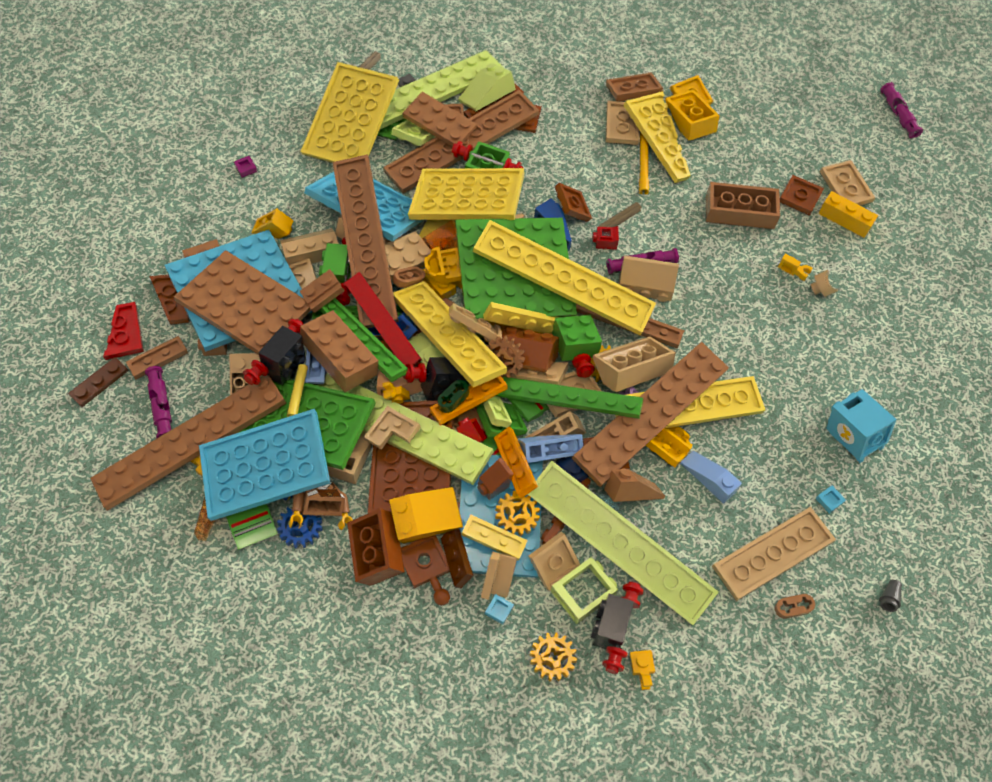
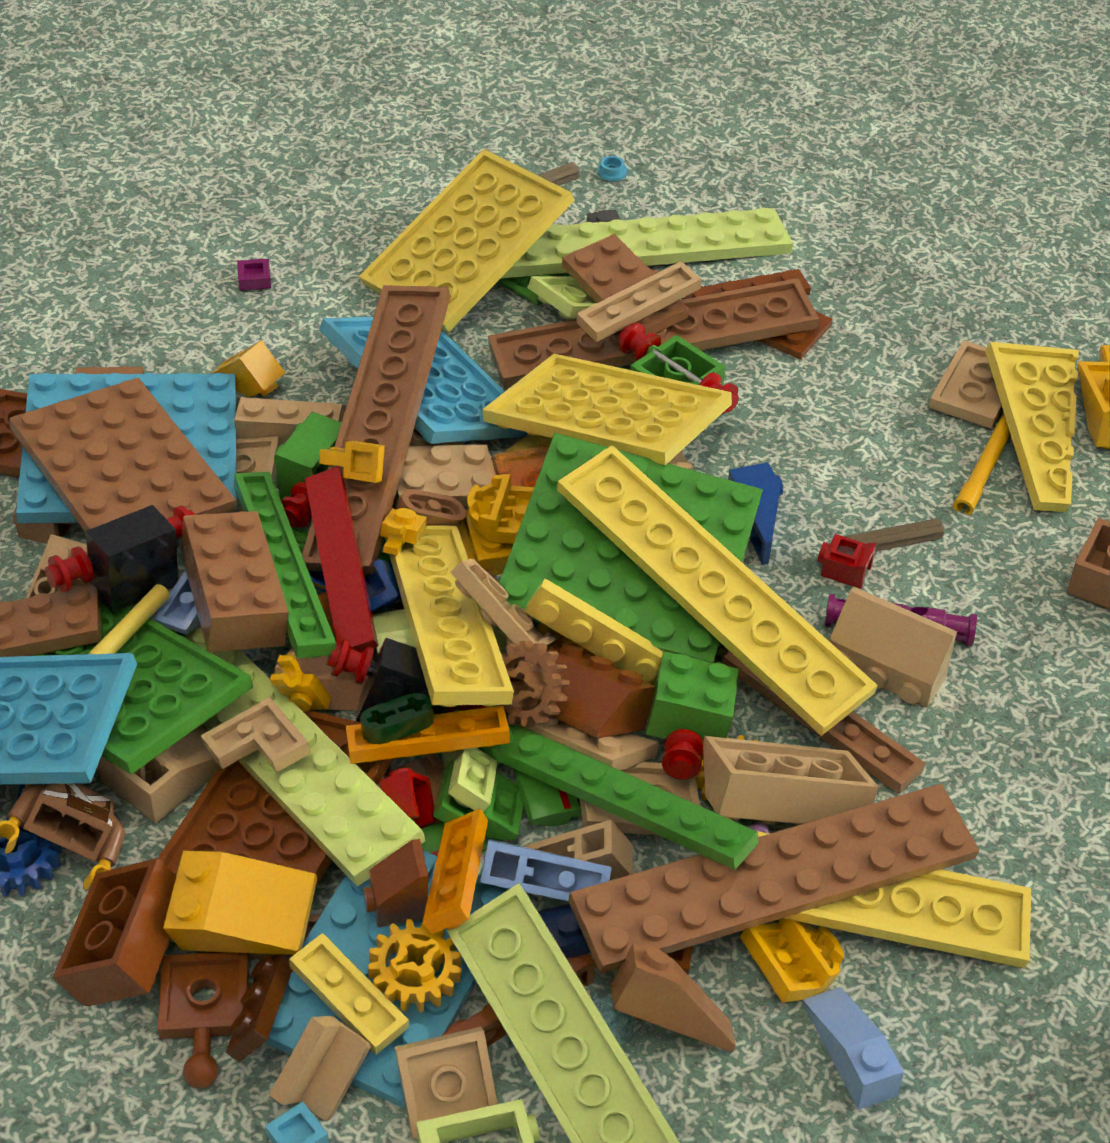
camera: 25 degrees right, 15 degrees down
(322, 290) = (261, 481): medium nougat plate -> none
(369, 265) = (360, 460): none -> yellow plate
(396, 49) = (612, 169): none -> medium azure plate
(403, 293) = (401, 527): none -> yellow plate
(454, 128) = (638, 301): none -> tan plate
(488, 87) = (746, 259): yellowish green slope -> none
(573, 202) = (809, 483): dark orange plate -> none
(633, 86) = (1027, 329): medium nougat plate -> none

